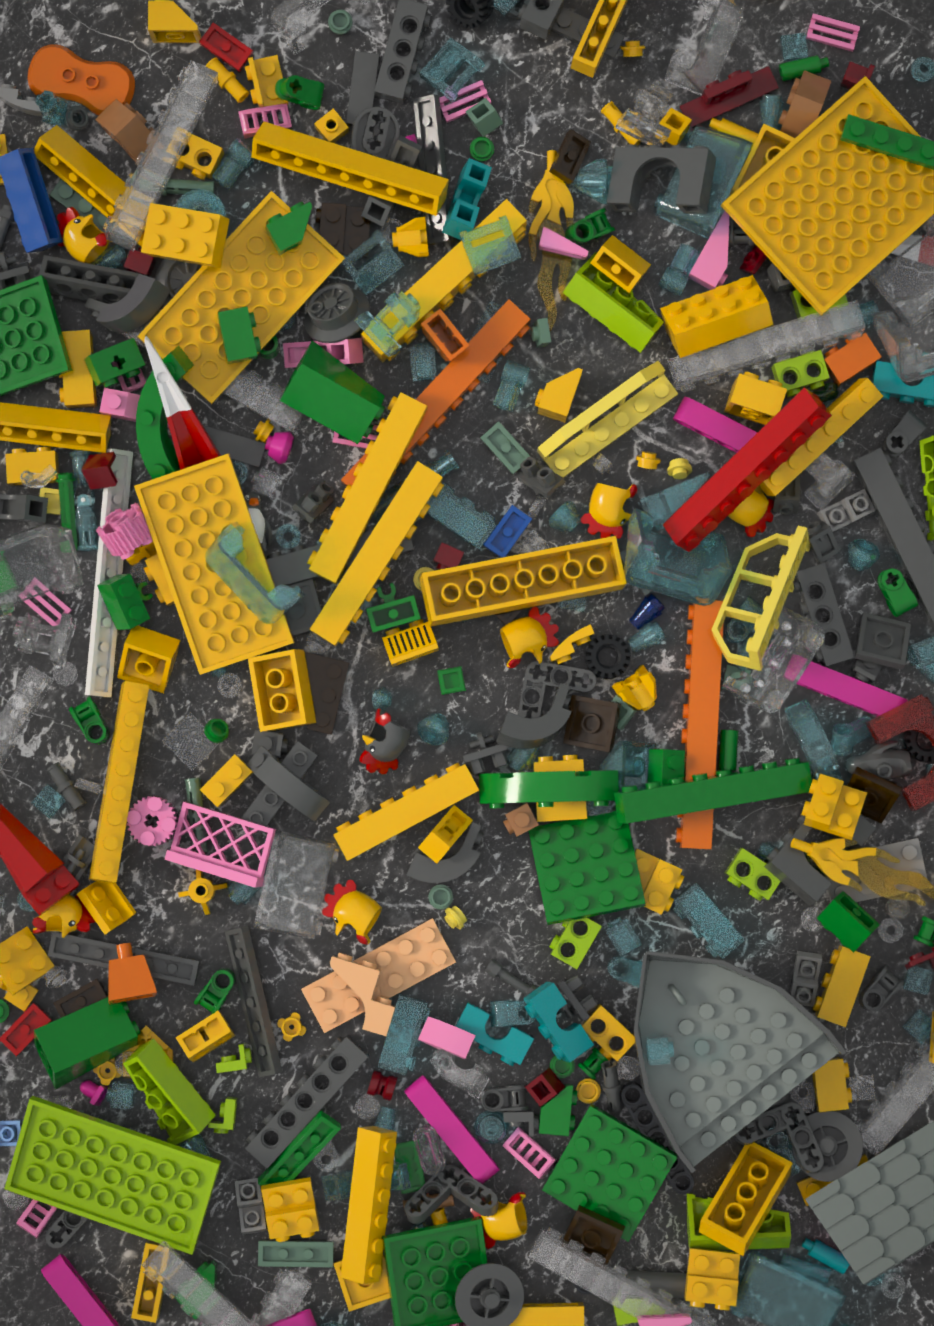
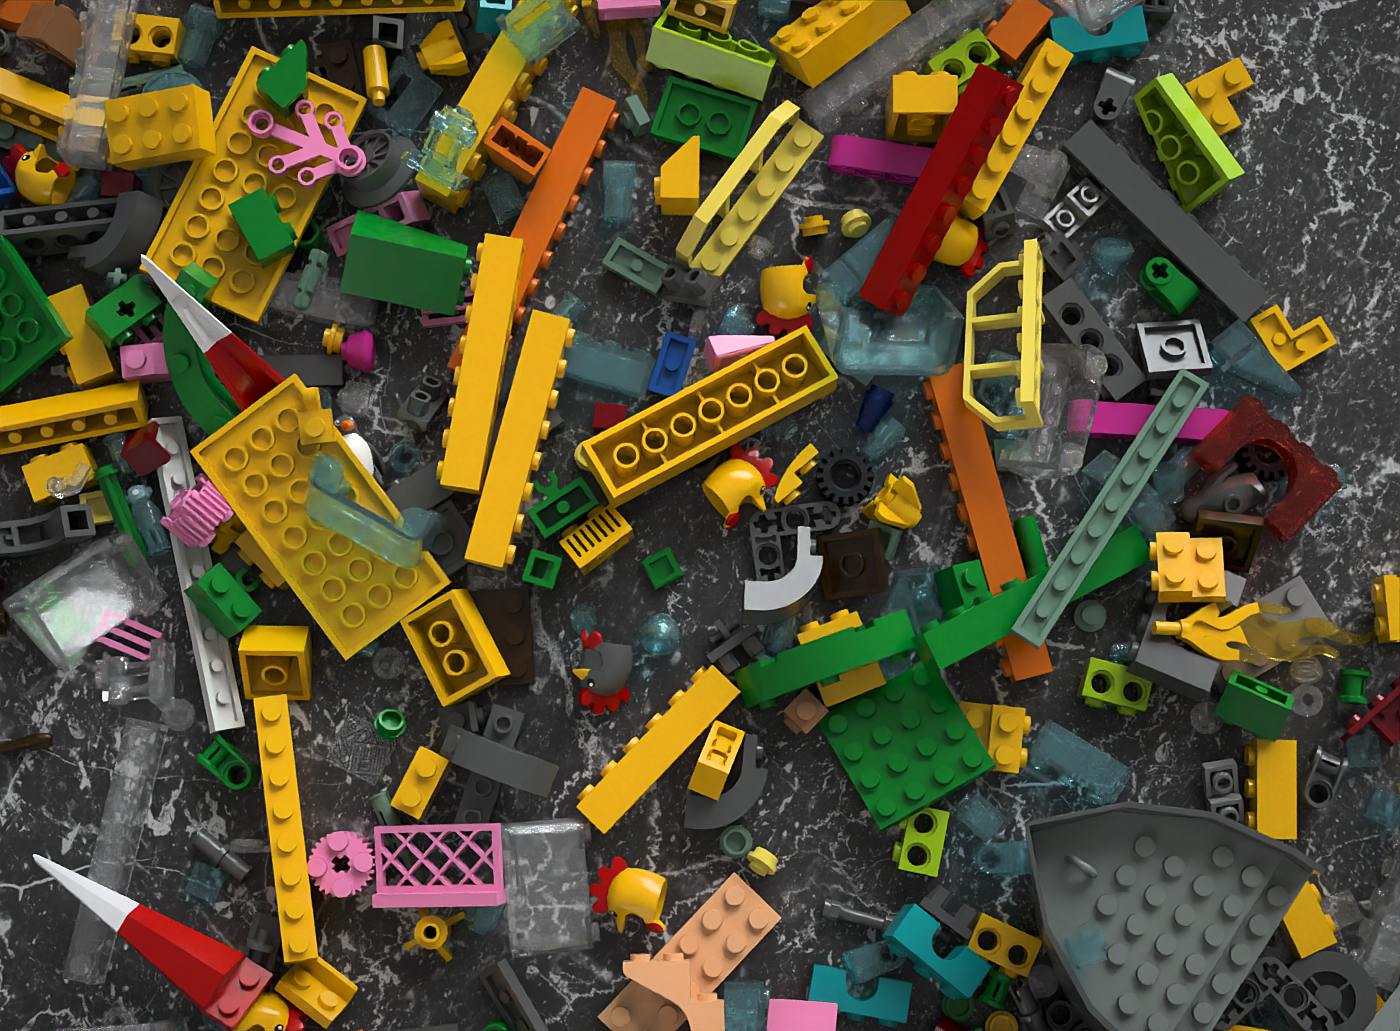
camera: 15 degrees left, 5 degrees down
(113, 338) = (113, 281): none -> sand green axle
(232, 496) = (316, 423): none -> yellow plate
(259, 382) = (309, 279): none -> sand green axle
(293, 284) = (311, 146): none -> bright pink plant
(357, 240) = (376, 74): none -> yellow cylinder
(363, 654) = (542, 570): none -> green brick
(552, 535) = (726, 349): none -> bright pink slope
(594, 350) = (701, 111): none -> green plate
(753, 817) = (1089, 615): none -> sand green plate
(791, 745) = (1109, 509): none -> sand green plate

